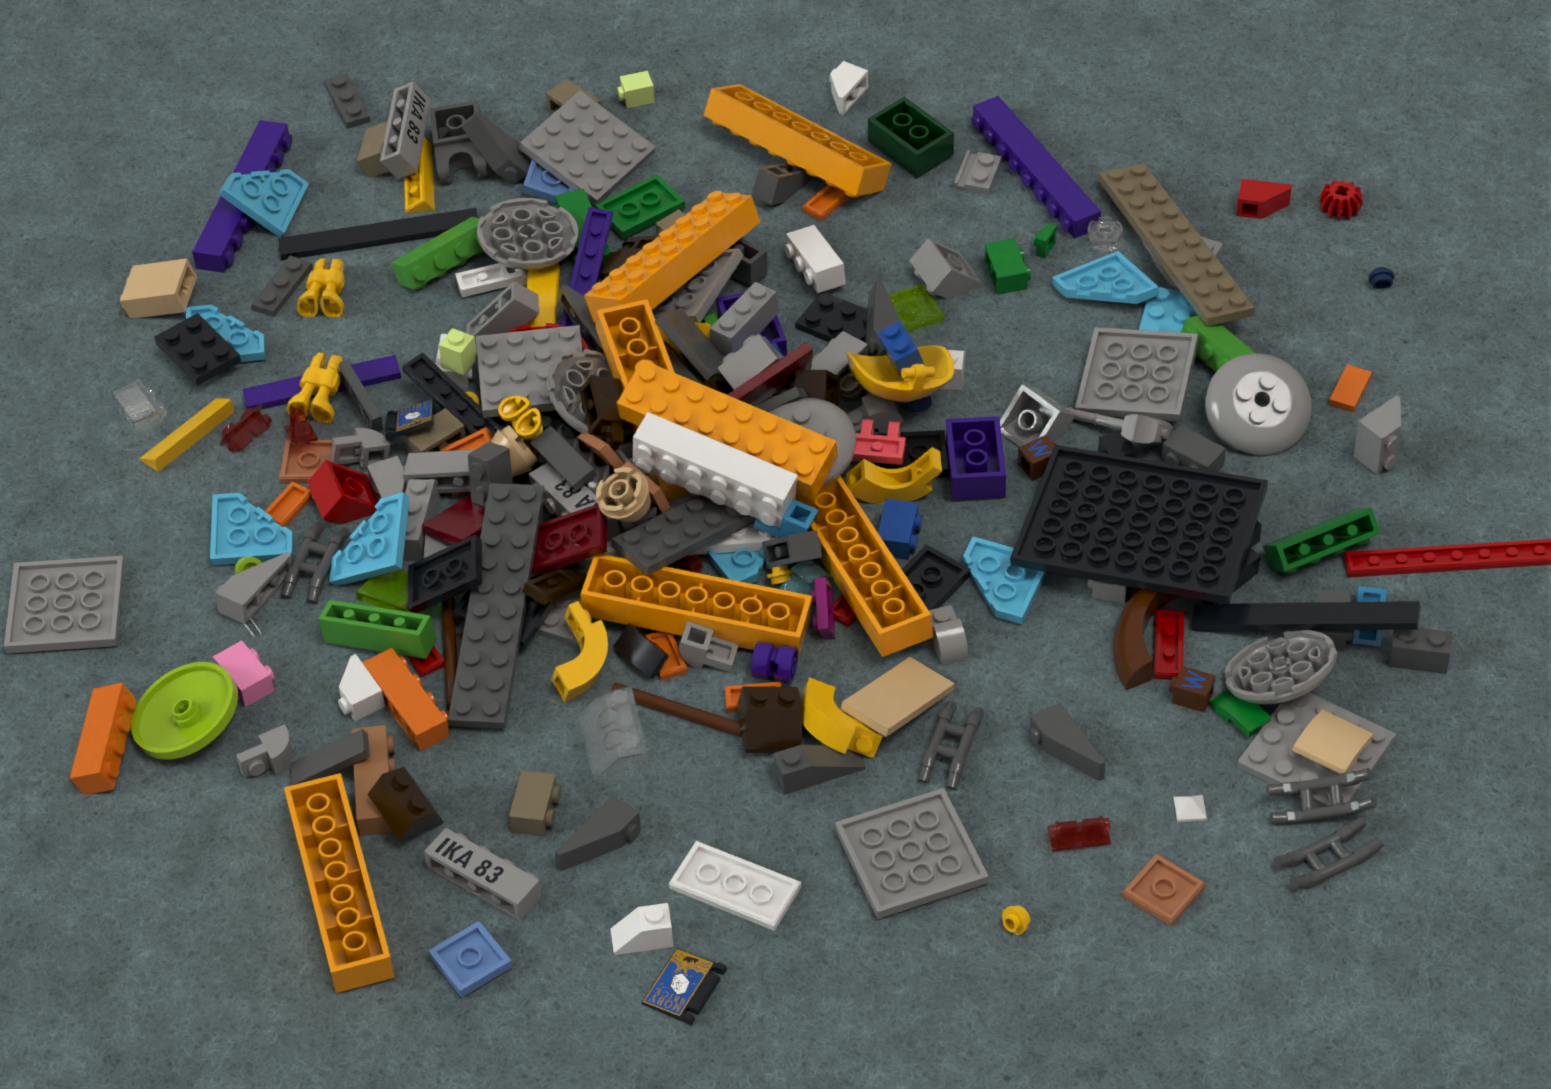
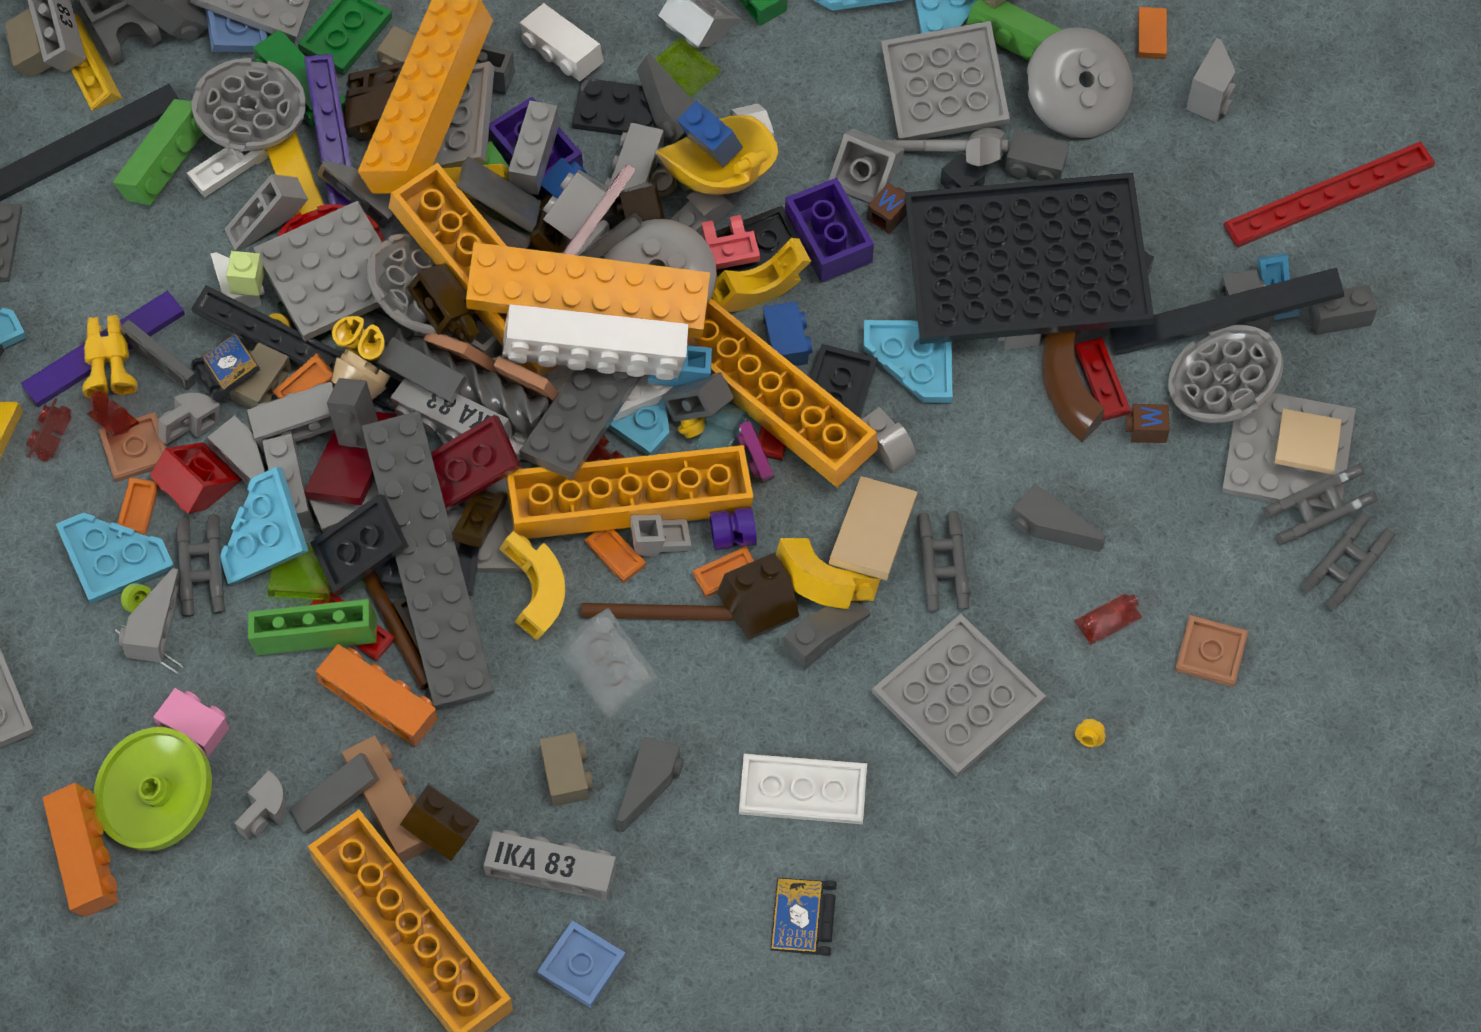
camera: 25 degrees left, 15 degrees up
(325, 284) = (51, 224): yellow piece -> none
(359, 691) = (323, 701): white slope -> none
(624, 495) = (517, 401): tan cone -> none
(641, 651) = (592, 560): black slope -> none
(643, 930) = (739, 872): white slope -> none
(1190, 808) = (1197, 553): white slope -> none
(1245, 715) = (1210, 436): green slope -> none
(1320, 540) = (1201, 217): green brick -> none

